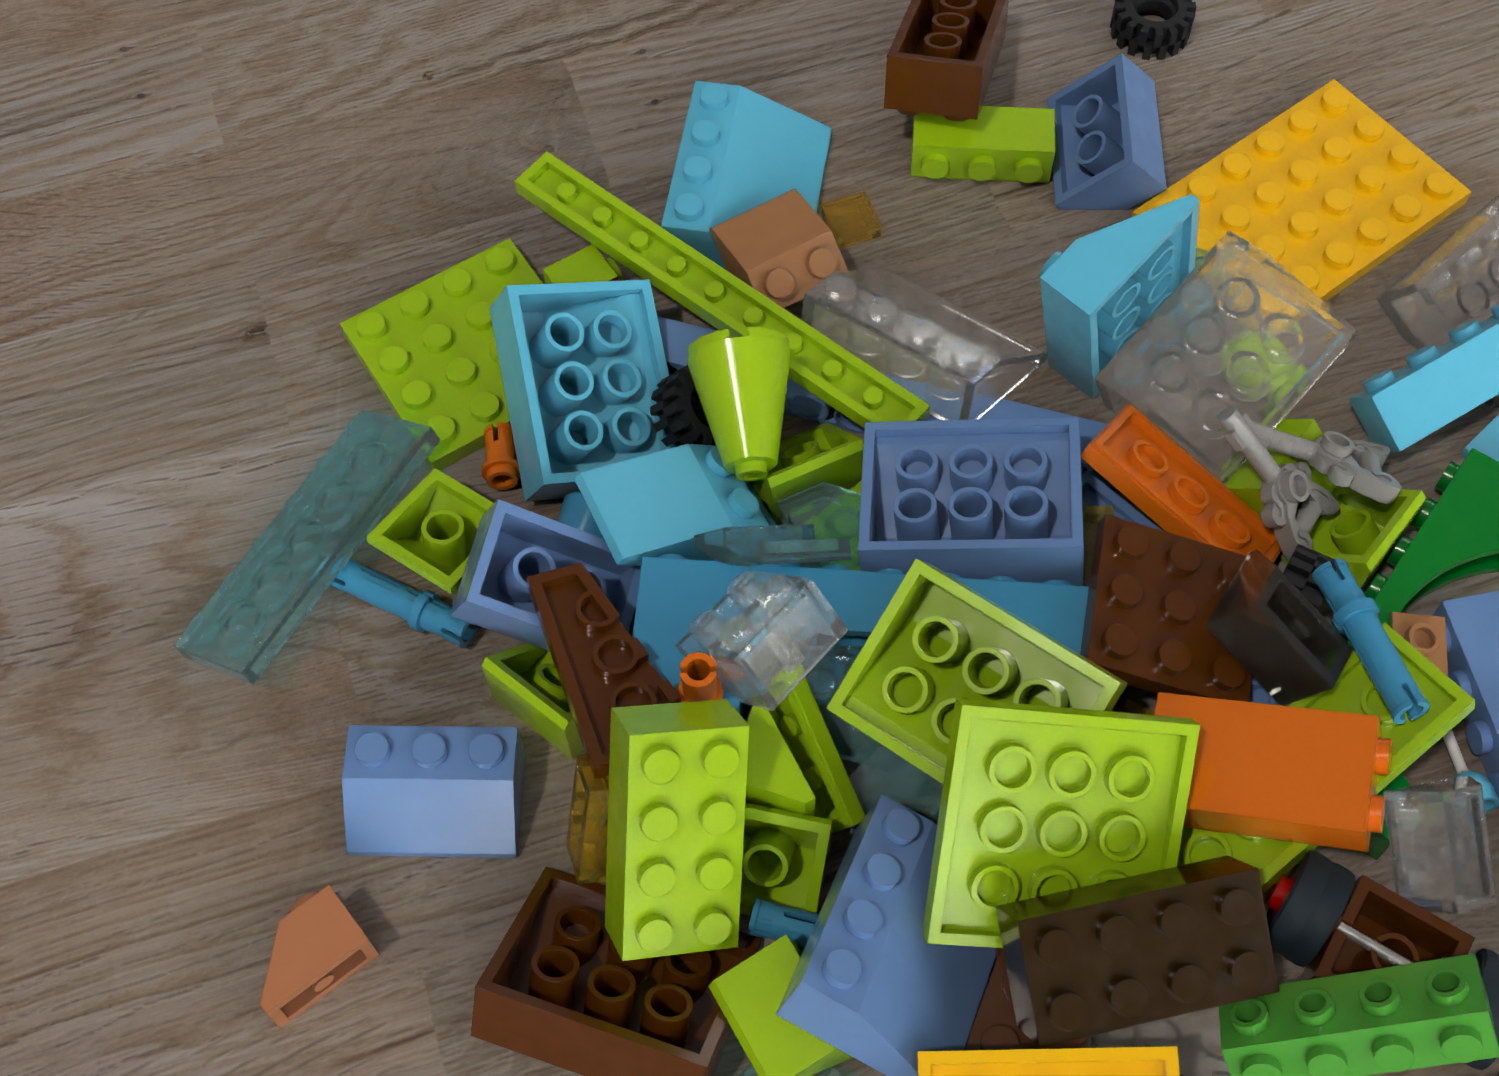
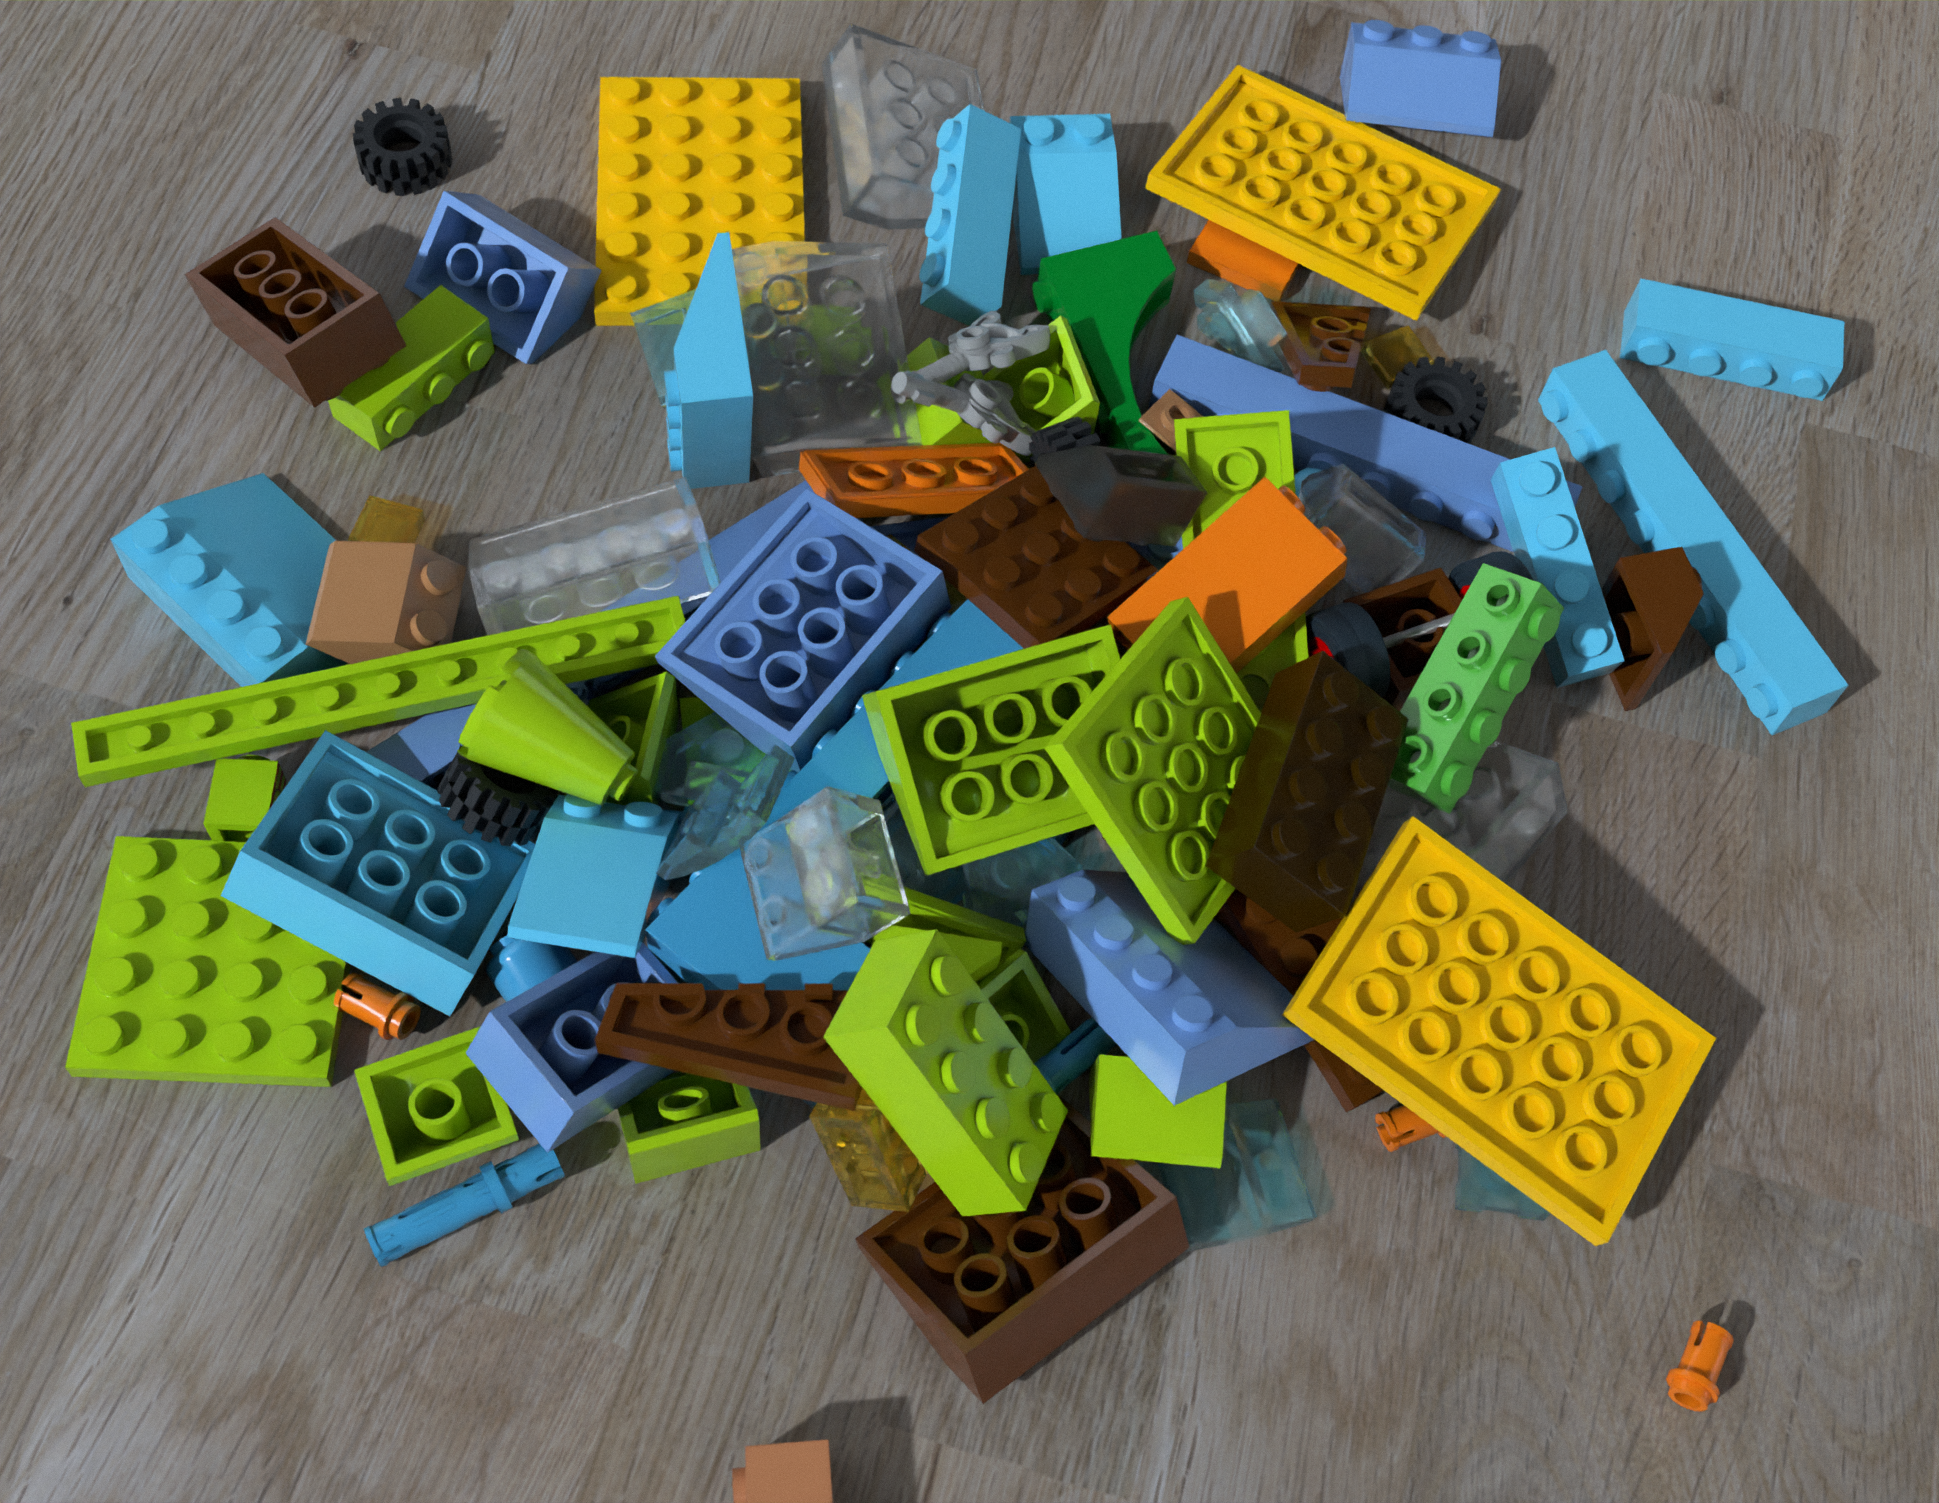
camera: 65 degrees left, 0 degrees up
(306, 545) = (324, 1258): clear light blue plate -> none
(433, 791) = (706, 1294): medium blue slope -> none
(699, 678) = (834, 957): orange pin -> none
(1359, 621) = (1172, 436): dark azure pin -> none

